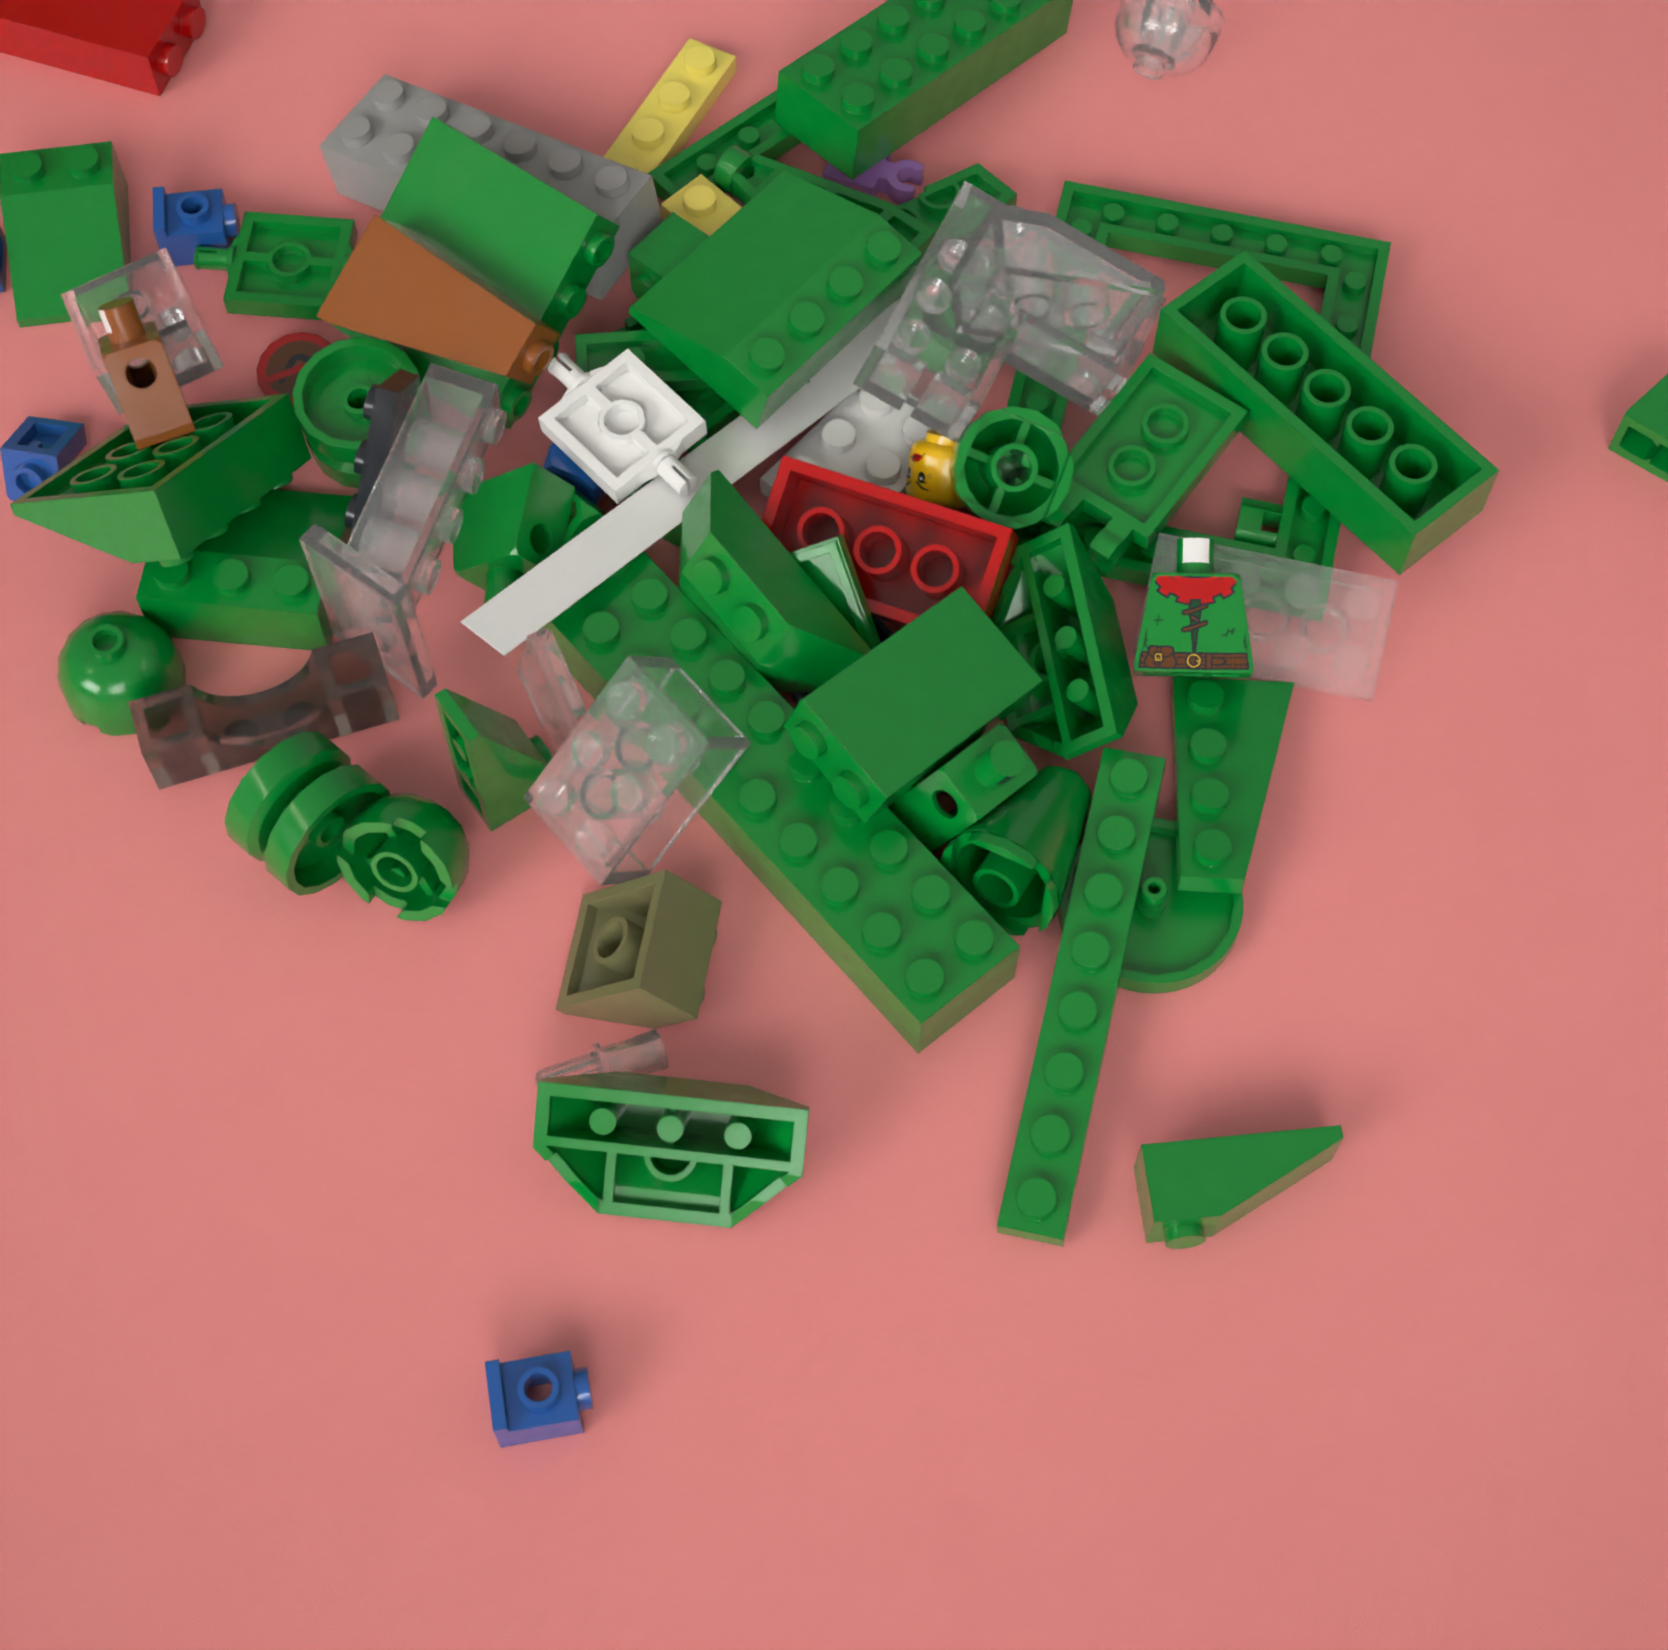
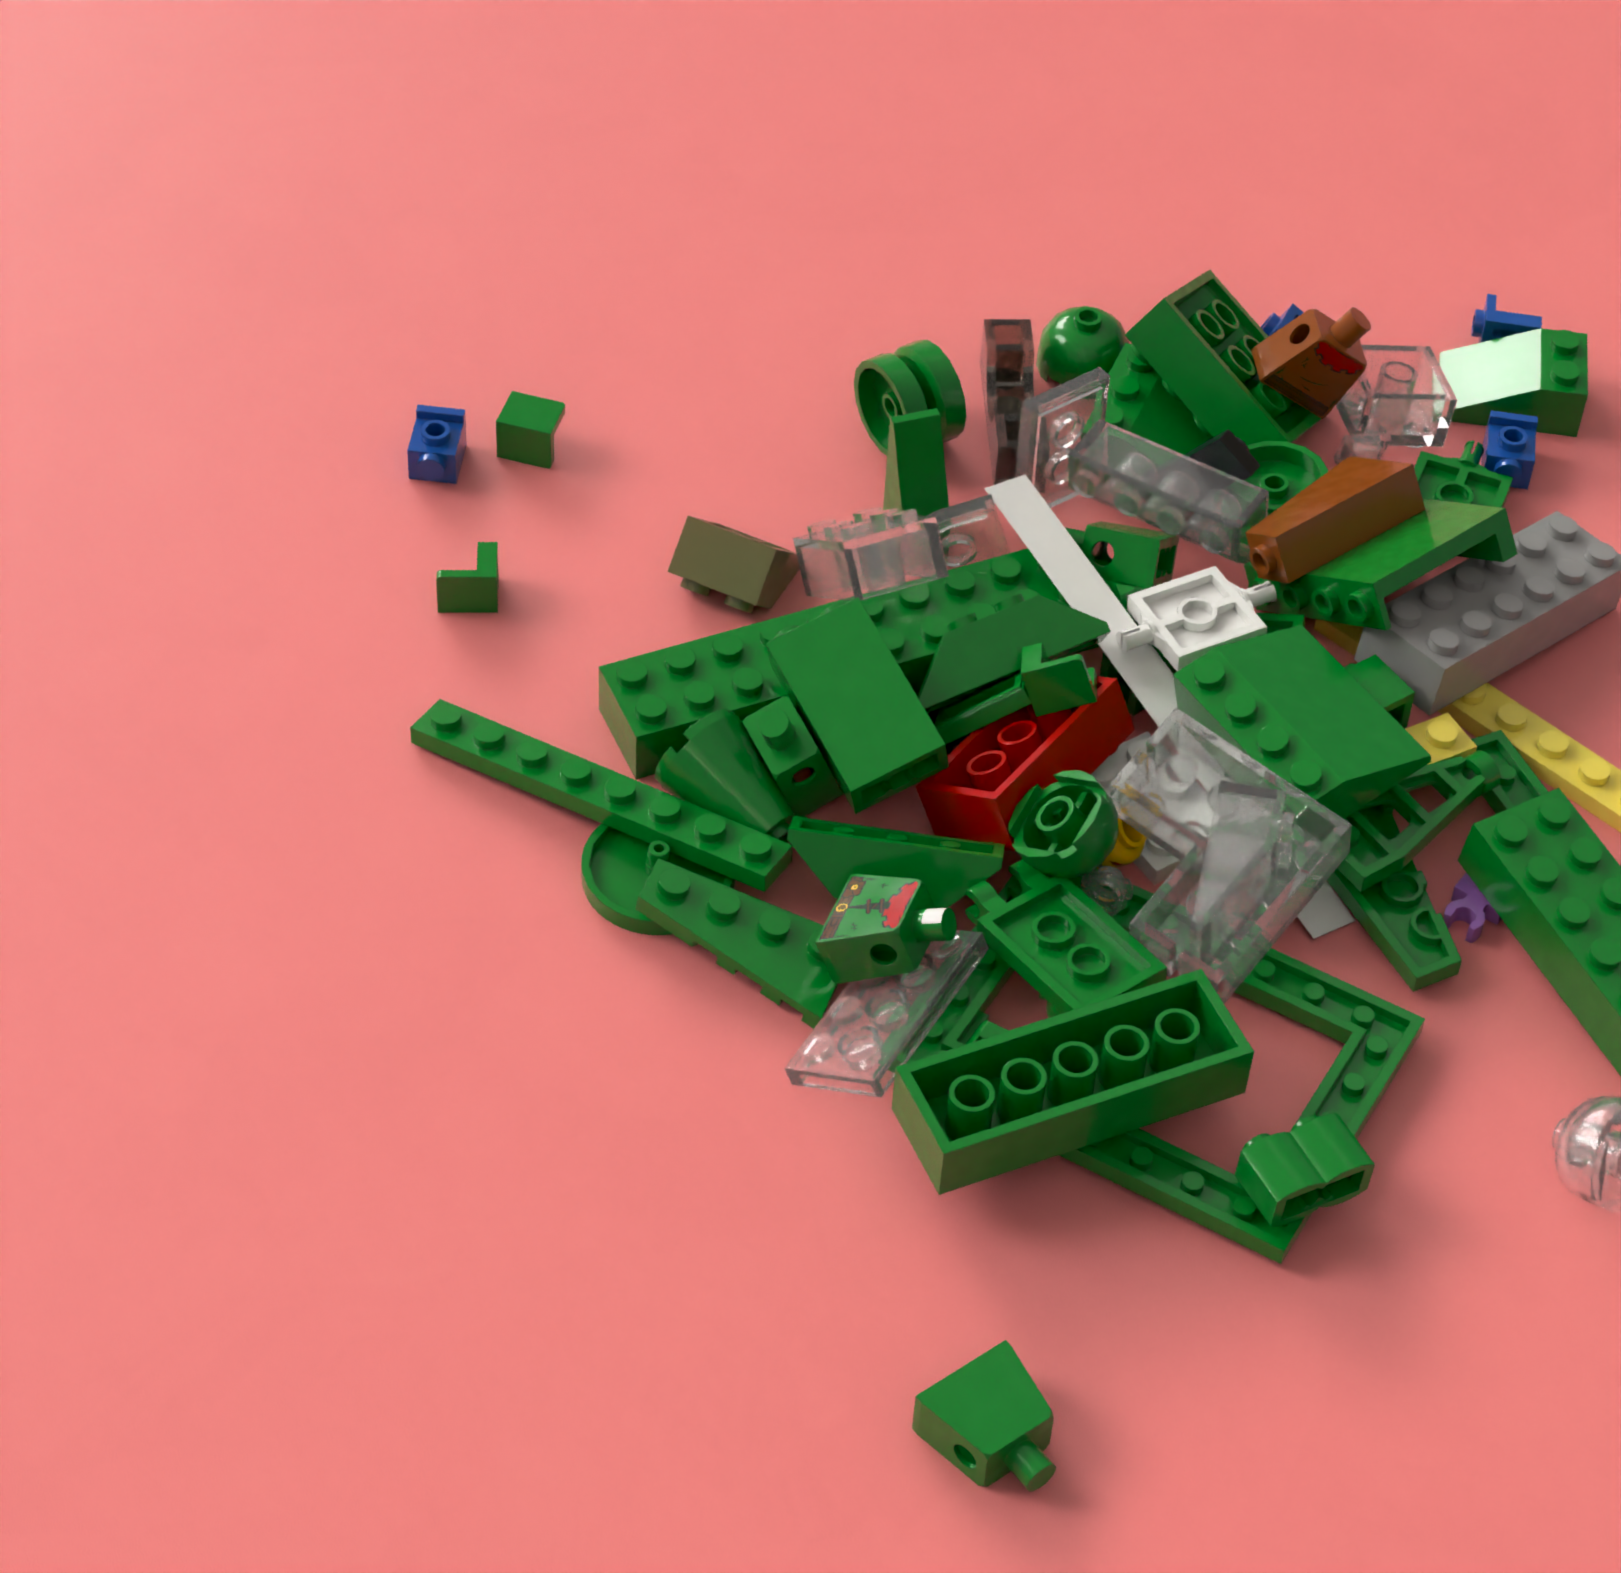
camera: 105 degrees right, 15 degrees down
(238, 354) = (1363, 445): none -> clear slope
(405, 855) = (858, 454): green cylinder -> none
(467, 1281) = (528, 429): none -> green panel
(636, 1055) = (656, 528): clear axle -> none
(670, 1144) = (589, 532): green wedge -> none
(778, 1264) = (471, 589): none -> green panel
(808, 507) = (1058, 682): none -> green panel
(1209, 1183) = (411, 816): green slope -> none
(1316, 224) = (1303, 1169): none -> green brick

